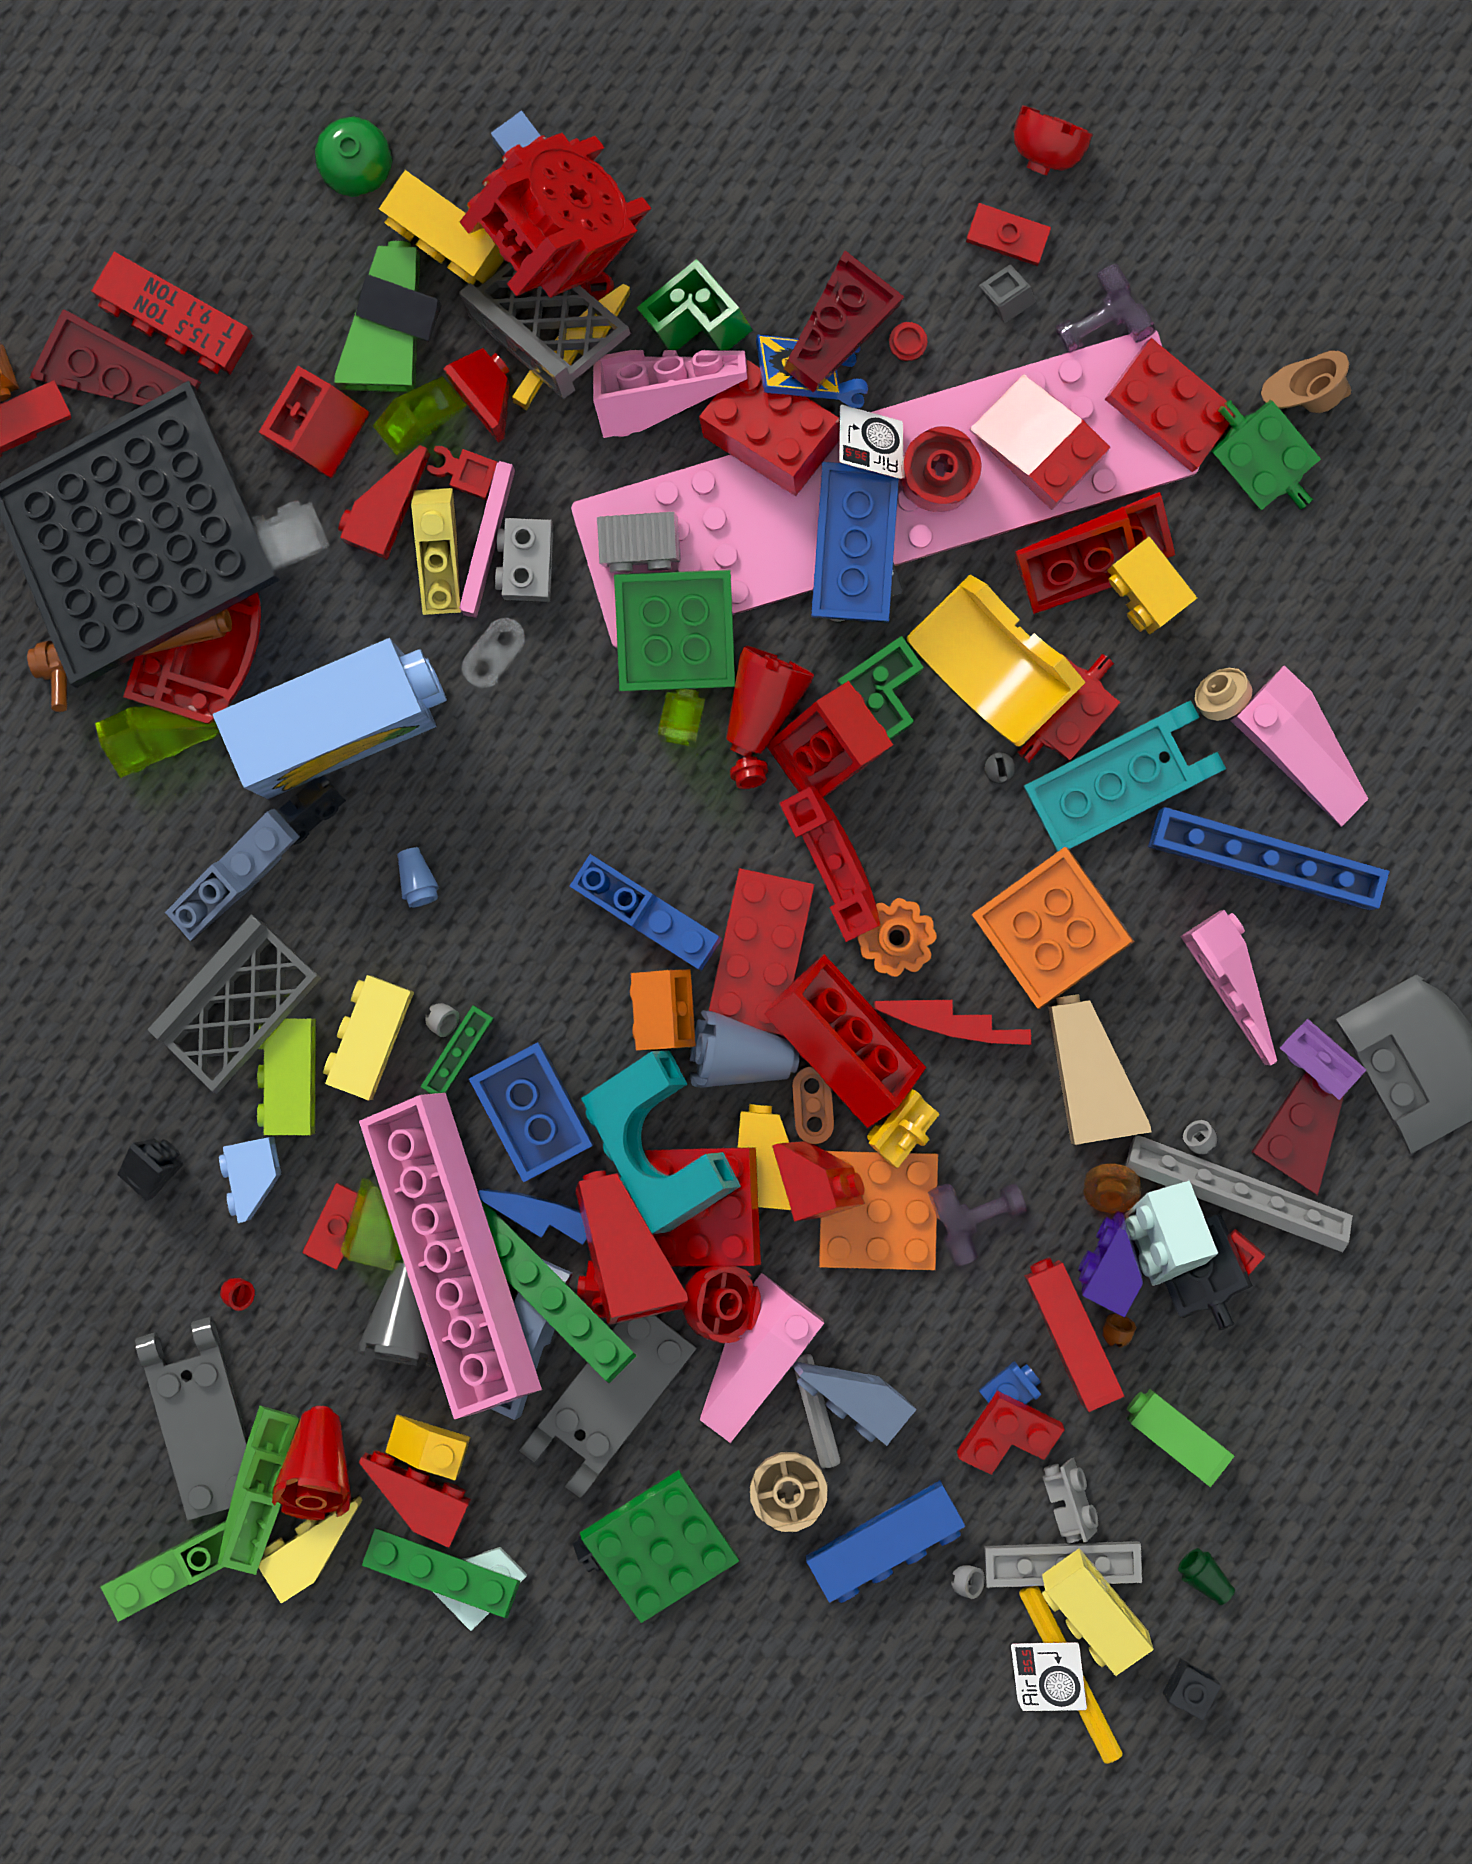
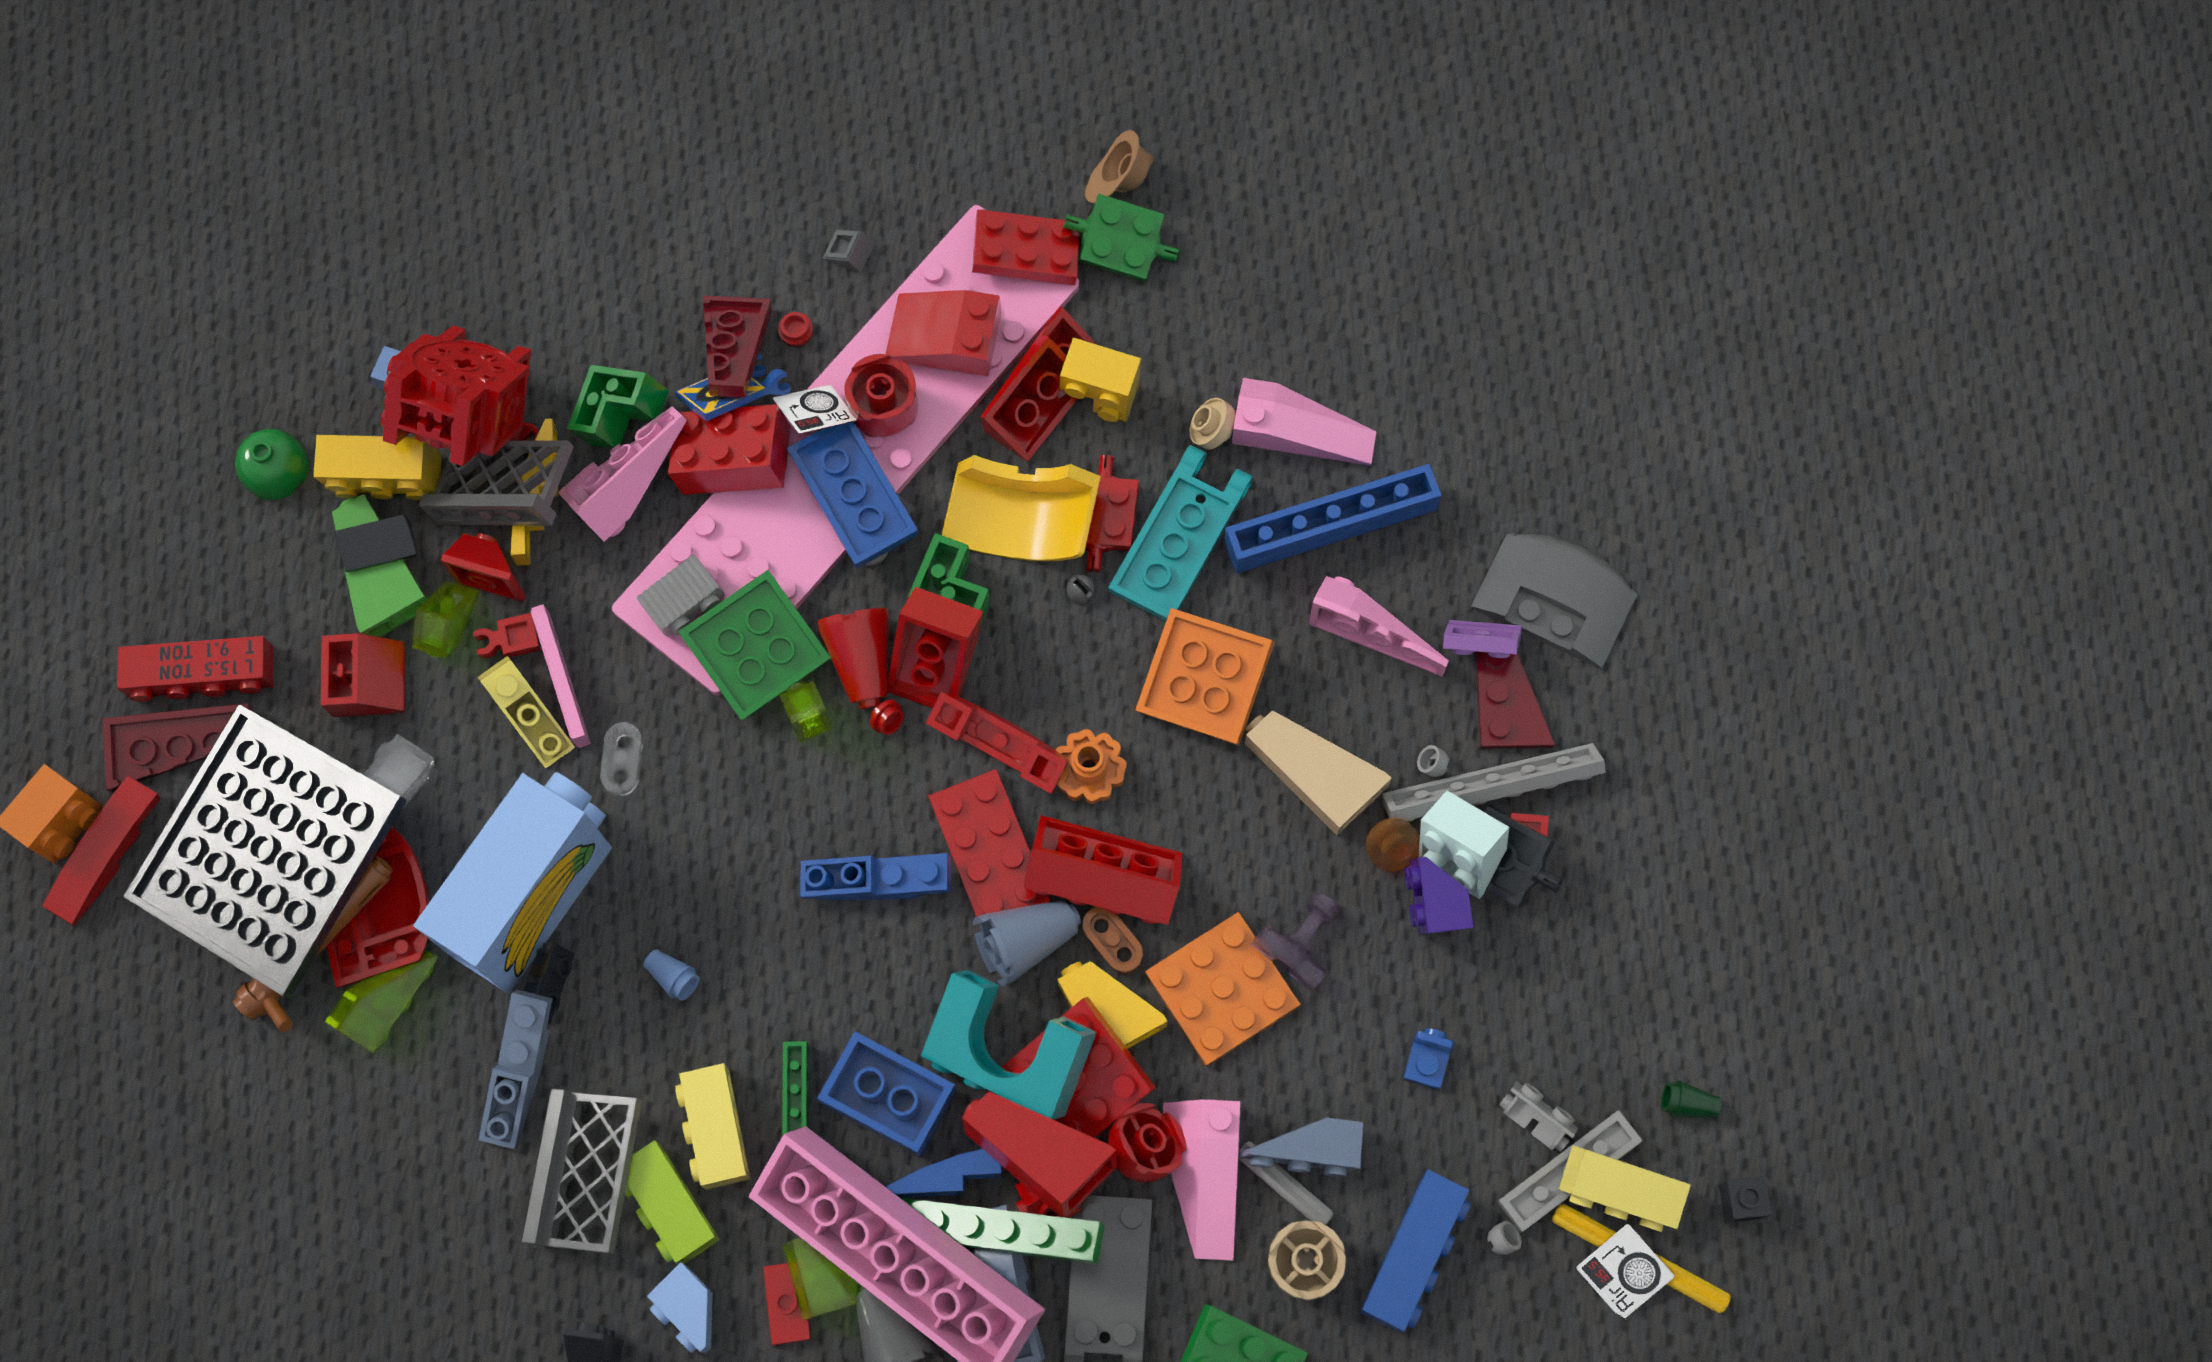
camera: 35 degrees left, 15 degrees down
(381, 510) = (460, 708): red slope -> none
(442, 1019) = (766, 1066): light grey hinge -> none
(526, 559) = (602, 671): light grey brick -> none
(662, 1009) = (939, 941): orange brick -> none
(817, 1181) = (1159, 991): red slope -> none
(903, 1129) = (1196, 907): yellow hips -> none
(939, 1018) = (1164, 805): red slope -> none
(1007, 1424) = (1441, 1089): red plate -> none
(1008, 234) = (820, 209): red plate -> none
(1049, 141) = (804, 123): red cylinder -> none
(1073, 1335) = (1445, 978): red slope -> none
(1118, 308) = (937, 207): clear purple bar -> none
(1118, 1330) = (1478, 953): dark orange hinge -> none
(1178, 1436) = (1586, 1001): bright green slope -> none

